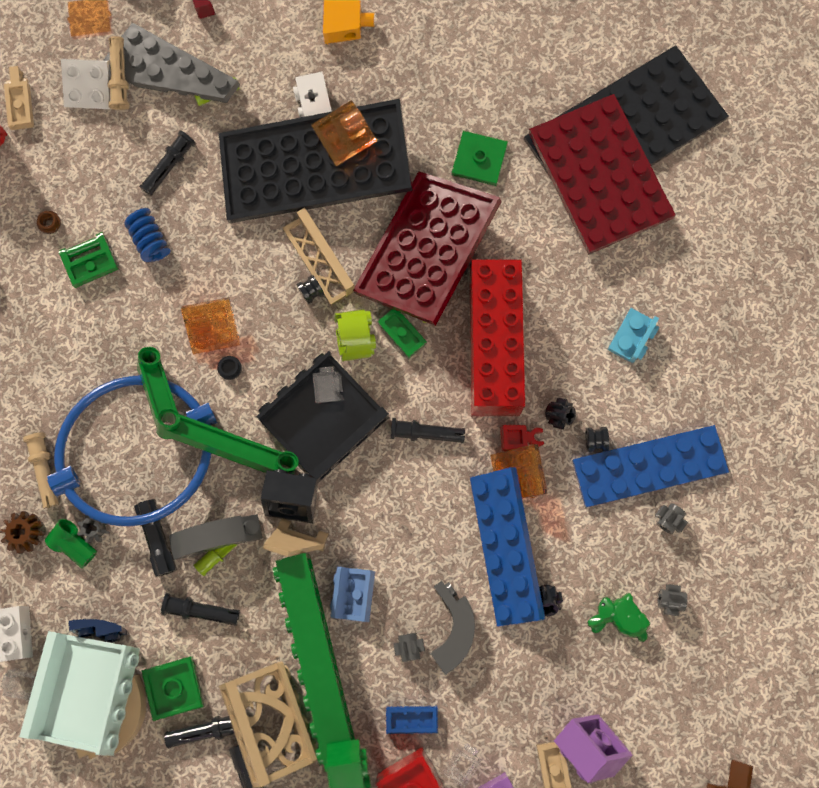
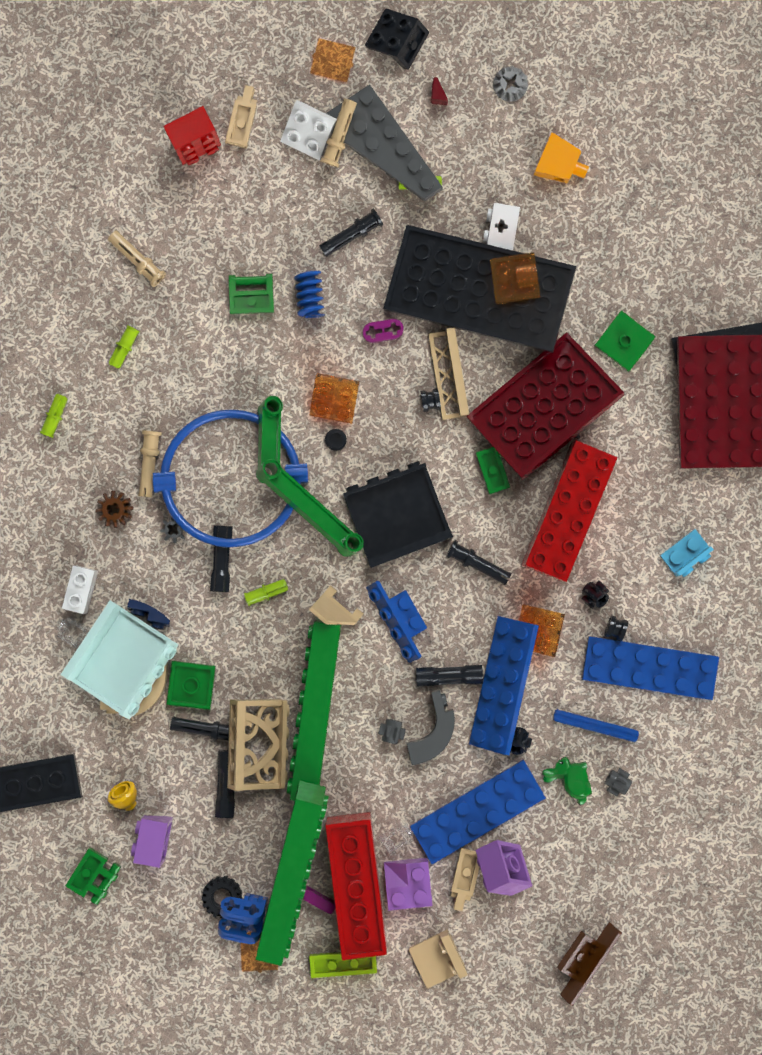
camera: 20 degrees right, 10 degrees up
(47, 215) = (225, 238): reddish brown plate -> none
(66, 540) = (148, 530): green piece -> none
(188, 608) = (226, 626): black pin -> none
(214, 535) = (270, 578): dark grey arch -> none
(238, 247) = (384, 336): none -> magenta beam
(289, 496) = (345, 571): black slope -> none
(327, 385) = (412, 492): clear window -> none
(352, 594) = (363, 671): medium blue bracket -> none
(354, 335) = (452, 457): lime brick -> none
(369, 522) = (400, 618): none -> blue bracket
(411, 719) = (371, 787): blue plate -> none
(460, 554) = (449, 675): none -> black axle
(517, 436) = (550, 599): red plate -> none
(537, 698) = (477, 811): none -> blue plate
(621, 550) = (595, 725): none -> blue axle
(671, 518) = (647, 718): dark grey gear -> none

